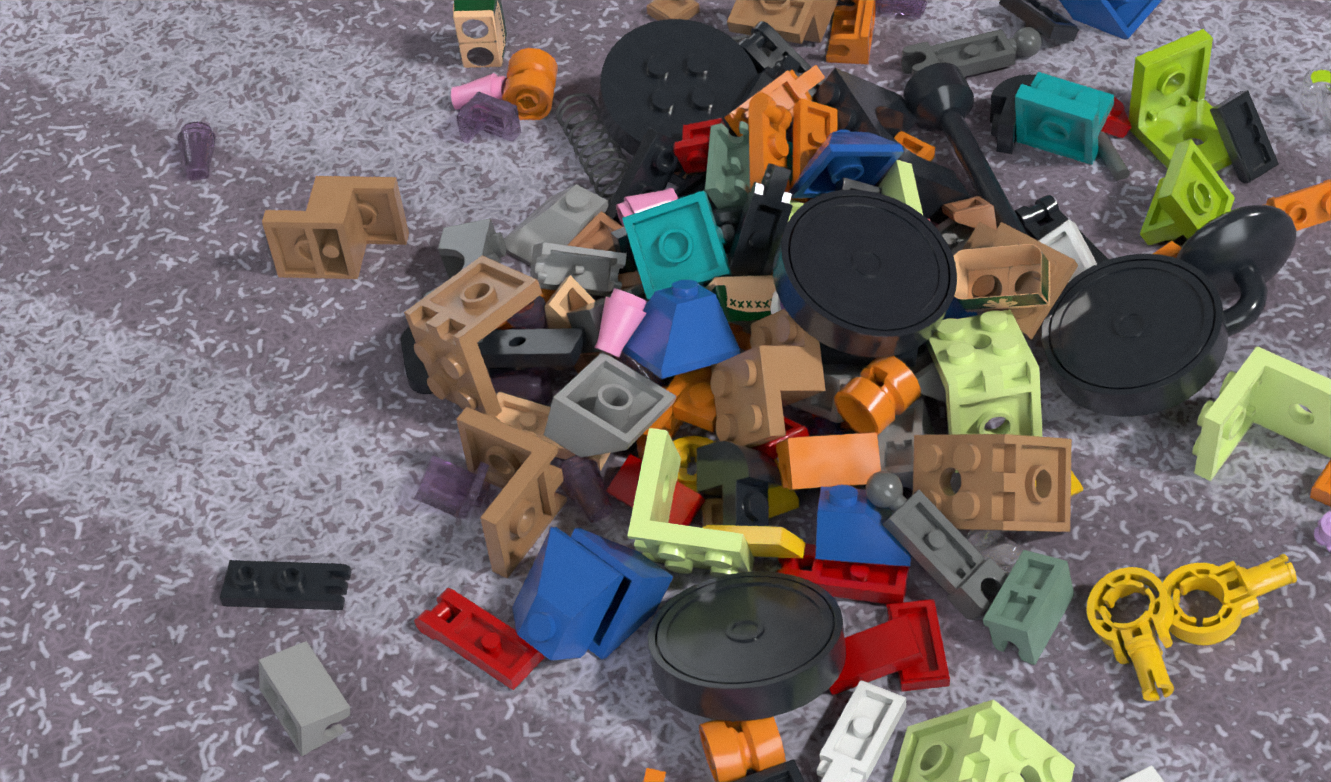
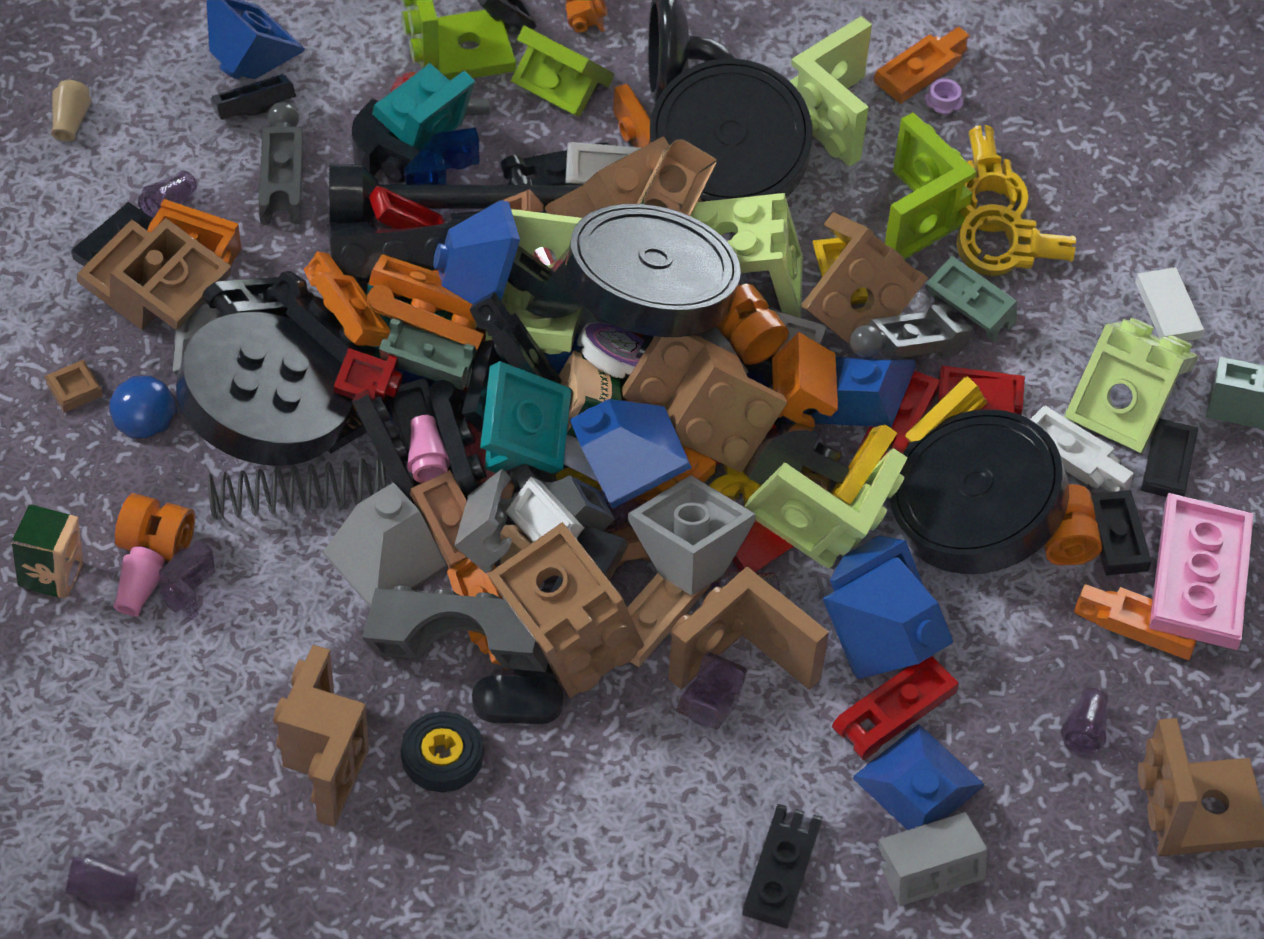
camera: 85 degrees left, 5 degrees up
(349, 334) = (442, 773): none -> black bush
(394, 674) = (918, 780): none -> blue slope
(581, 298) = (539, 511): none -> white tile
(619, 321) = (604, 484): bright pink cone -> none
(852, 600) = (960, 399): none -> yellow tile
(929, 134) = (400, 211): none -> red tile
(1014, 147) = (444, 151): none -> clear blue slope
(1140, 537) = (938, 183): none -> lime bracket

